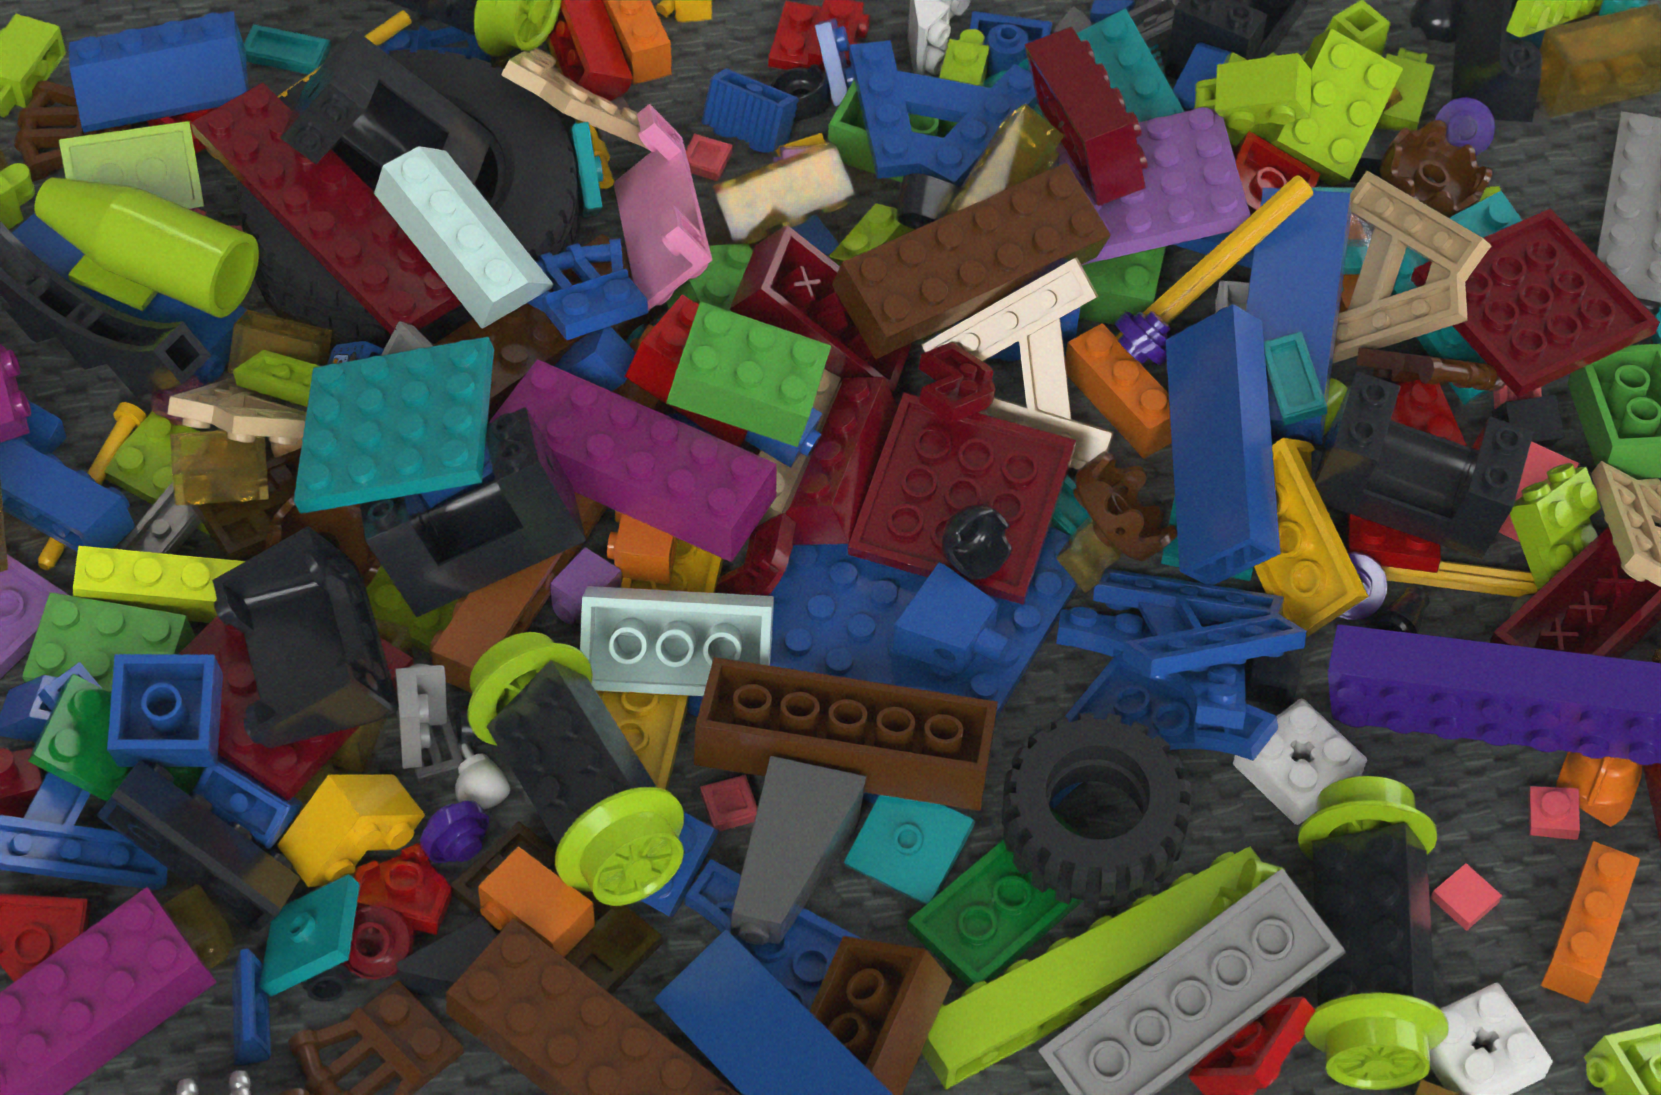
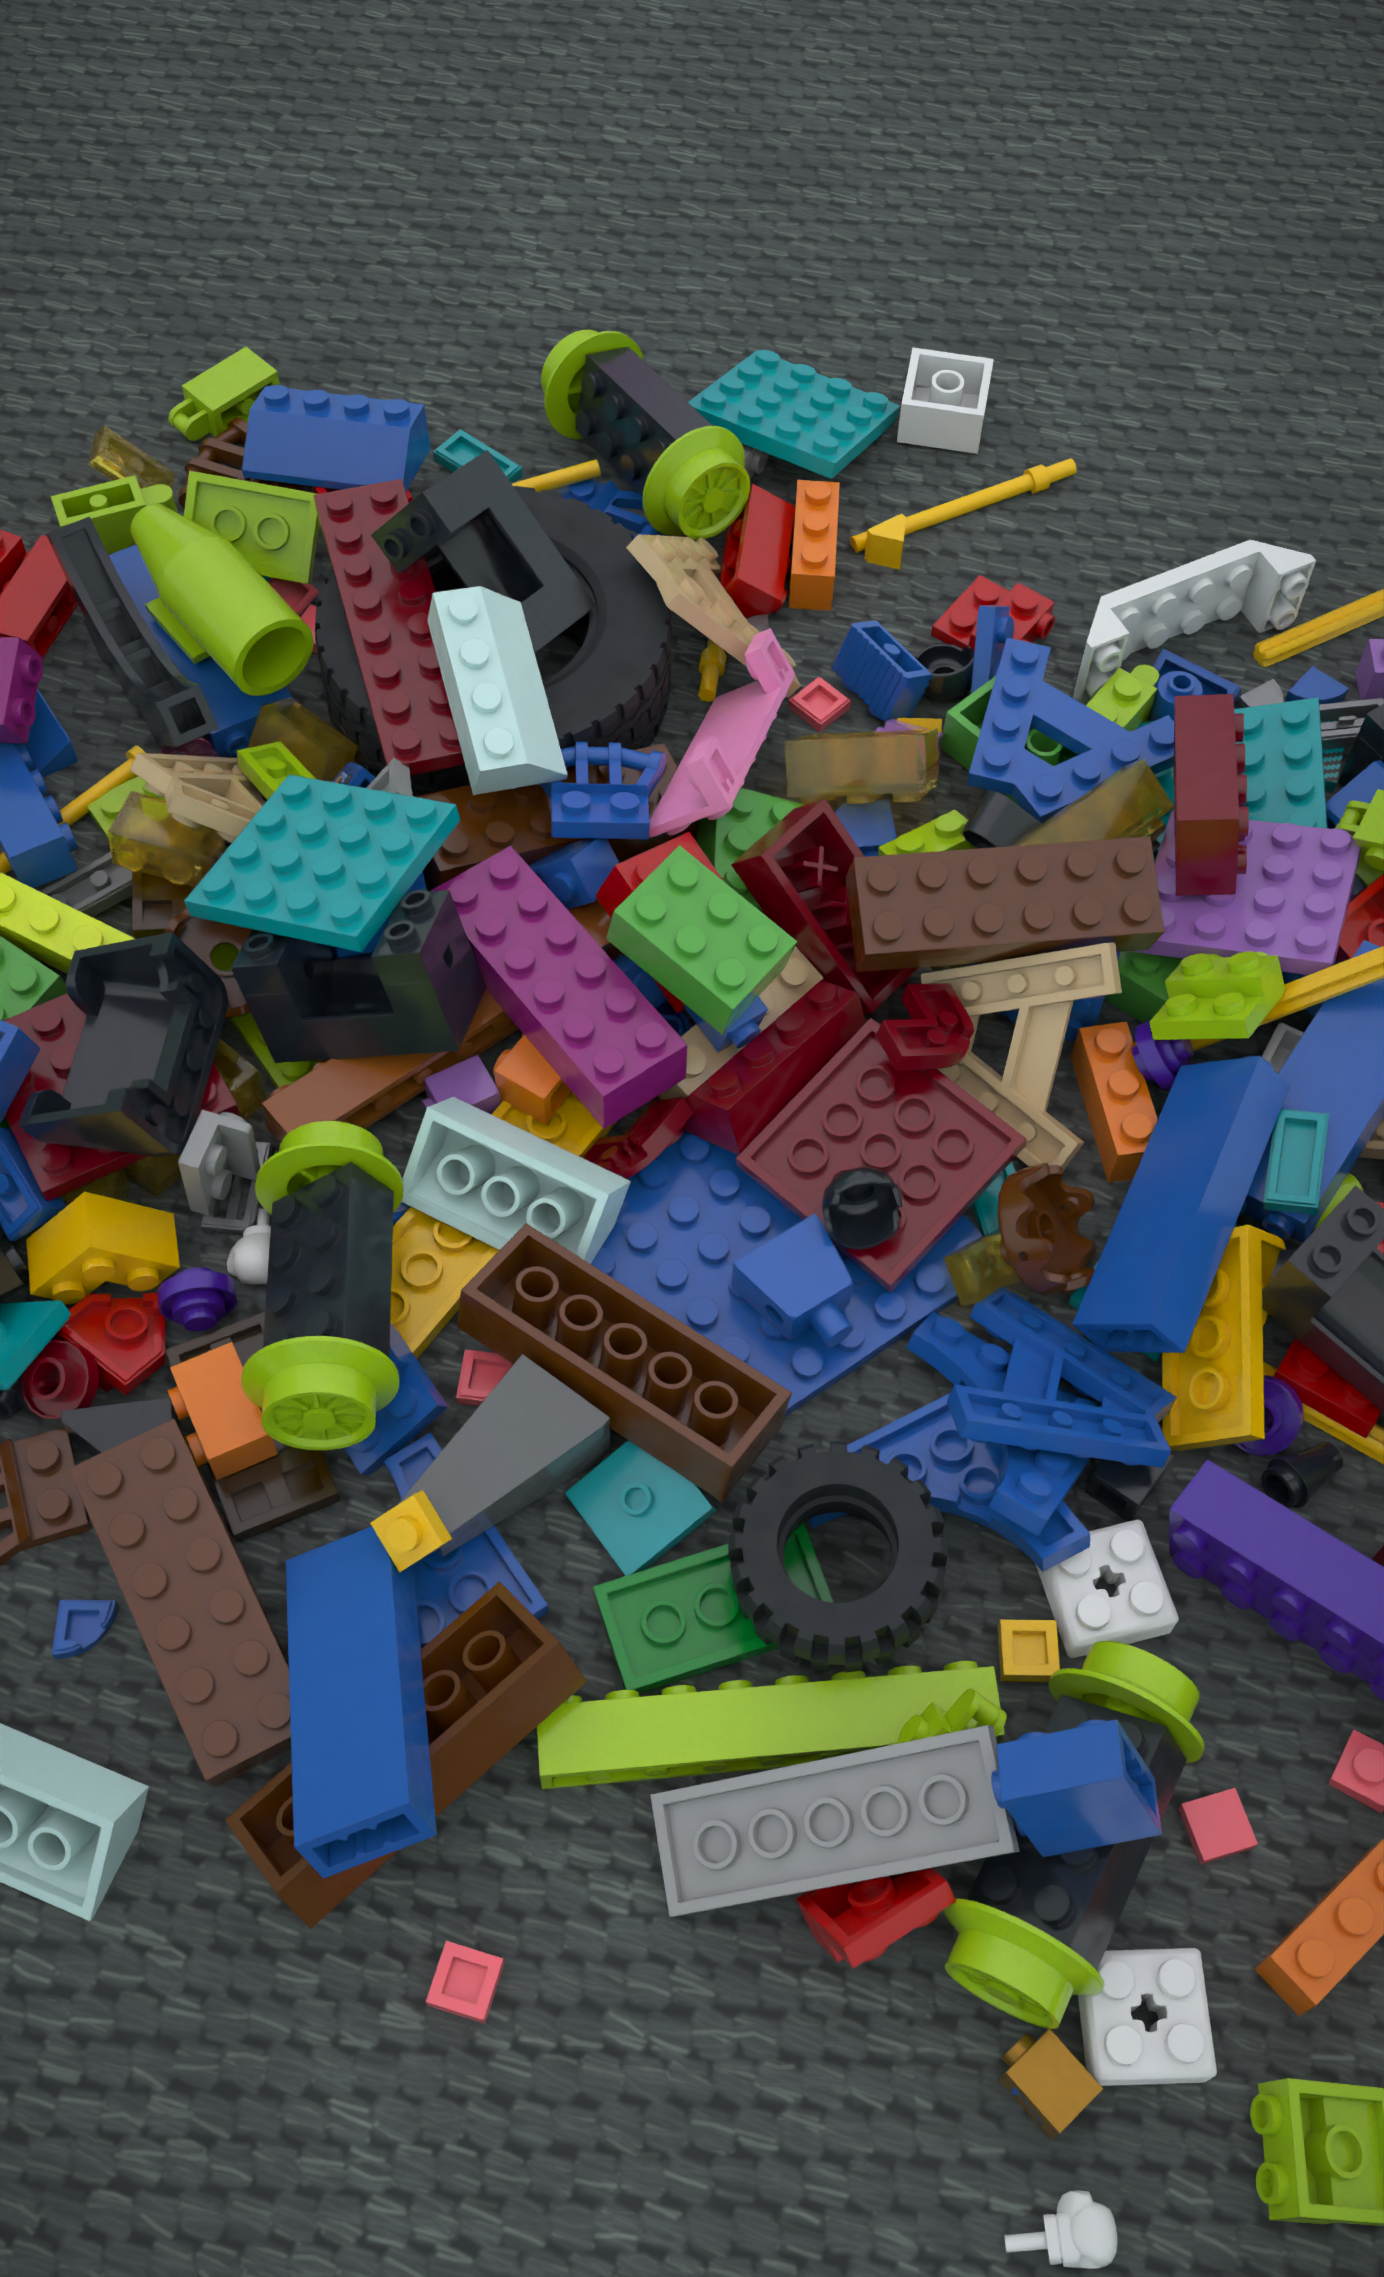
camera: 25 degrees right, 5 degrees up
(588, 170) = (679, 673): teal plate -> none
(756, 923) = (411, 1531): none -> yellow plate
(1173, 272) = (1219, 996): none -> lime plate
(1266, 829) = (1028, 1650): none -> yellow plate
(1368, 884) = (1077, 1788): none -> blue brick

